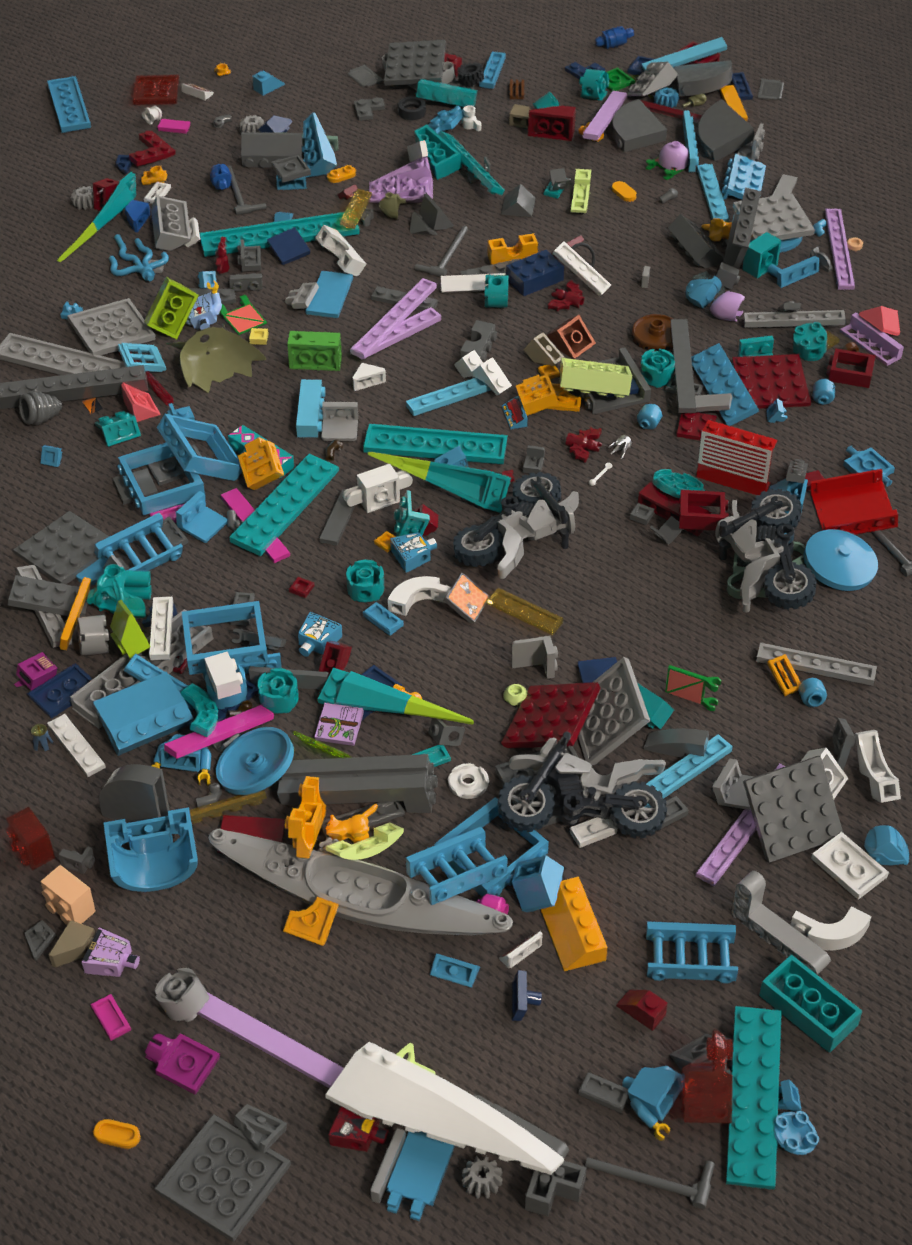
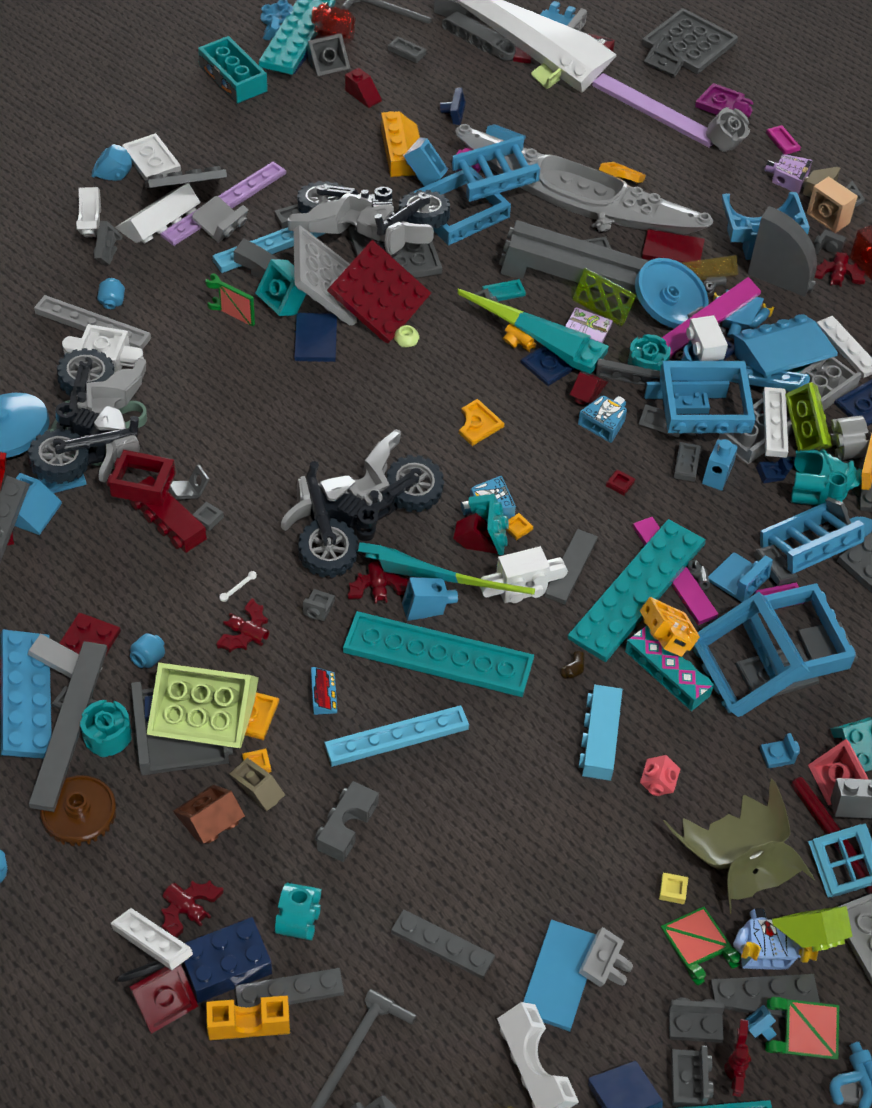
camera: 175 degrees left, 5 degrees up
(71, 832) = (839, 268): none -> dark red animal
(116, 1134) = (769, 74): light orange tile -> none
(185, 280) = (809, 1029): none -> flag
(205, 708) = (724, 313): teal tile -> none
(213, 594) = (724, 457): none -> dark azure torso
(267, 385) = (660, 775): none -> coral brick
(306, 821) = (627, 214): light orange bracket -> none
(314, 350) = (592, 821): bright green piece -> none
(340, 421) = (562, 701): light grey bracket -> none
(354, 828) = (586, 228): light orange animal -> none
(365, 581) = (549, 464): teal brick -> none
(368, 376) = (516, 778): white slope -> none
(383, 618) = (532, 430): dark azure plate -> none
(383, 838) = (577, 212): yellowish green slope -> none
(393, 318) = (464, 885): lavender tile -> none
(409, 327) = (463, 865): lavender plate -> none
(415, 590) = (491, 452): white arch -> none
(432, 622) = (479, 422): none -> light orange tile
(464, 283) = (328, 958): white tile -> none
(466, 598) = (439, 430): tile -> none
(466, 790) = (459, 272): white tile -> none
(488, 371) = (351, 743): white arch -> none
(522, 950) = (445, 137): white slope -> none
(525, 611) = (375, 415): clear yellow plate -> none
(535, 652) = (380, 353): light grey bracket -> none
(537, 394) = (288, 704): light orange piece -> none
(622, 443) = (194, 618): flat silver piece -> none
(645, 276) = (51, 927): light grey tile -> none
(653, 1095) = (370, 38): dark azure torso -> none
(674, 482) = (151, 538): teal tile -> none
(696, 933) = (308, 127): dark azure fence -> none
(735, 458) = (76, 531): panel -> none
(772, 928) = (246, 122): light grey beam -> none
(785, 691) = (130, 318): light orange tile -> none
(791, 619) = (106, 340): none -> white brick
(835, 935) = (187, 111): white arch -> none

